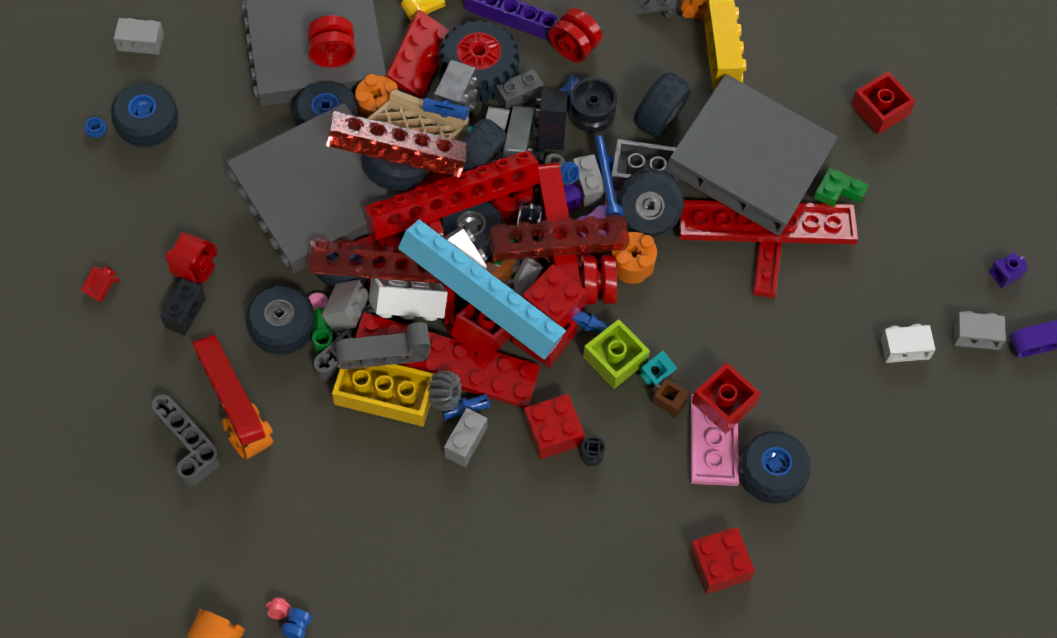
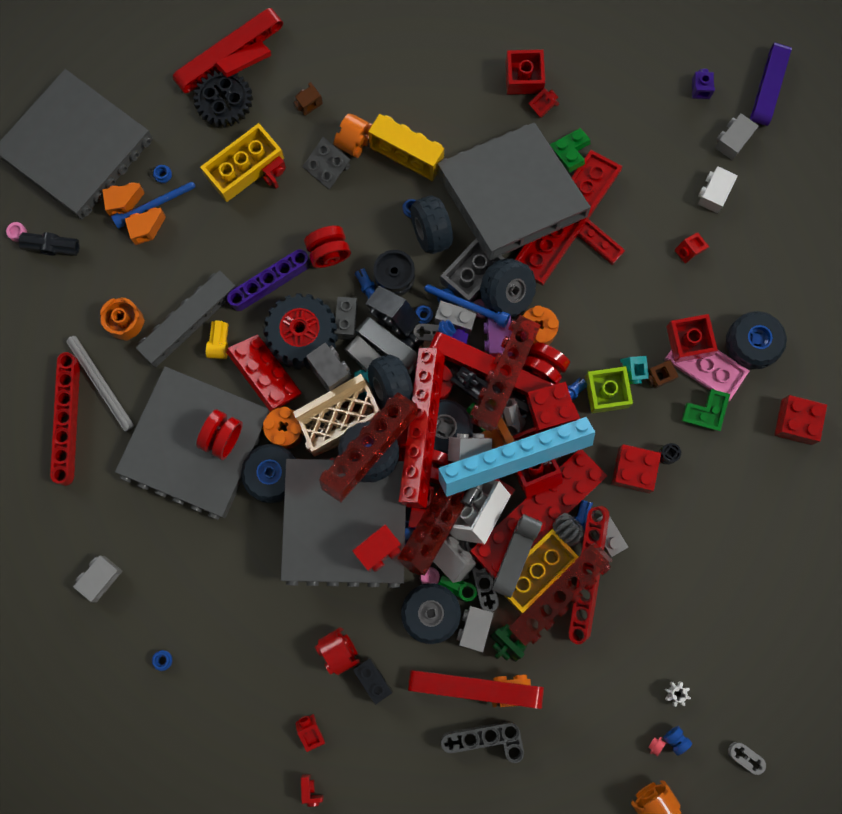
camera: 55 degrees left, 15 degrees up
(42, 310) = (307, 788): none -> red bracket
(144, 114) = (179, 616): black wheel -> none
(291, 369) = (475, 628): none -> light grey brick
(299, 398) = (505, 646): none -> dark green hips
(306, 212) = (377, 549): none -> red brick
(338, 598) = (680, 689): none -> white gear
(374, 415) = (522, 626): none -> clear red brick
(411, 434) = (589, 604): none -> red beam
(417, 276) = (470, 495): none -> dark grey pin
(445, 108) = (345, 386): blue pin -> none
(572, 150) = (424, 309): none -> blue plate
(664, 470) = (709, 416): none -> green plate
(828, 353) = (691, 247): none -> red bracket
(869, 138) = (544, 102): none -> red bracket

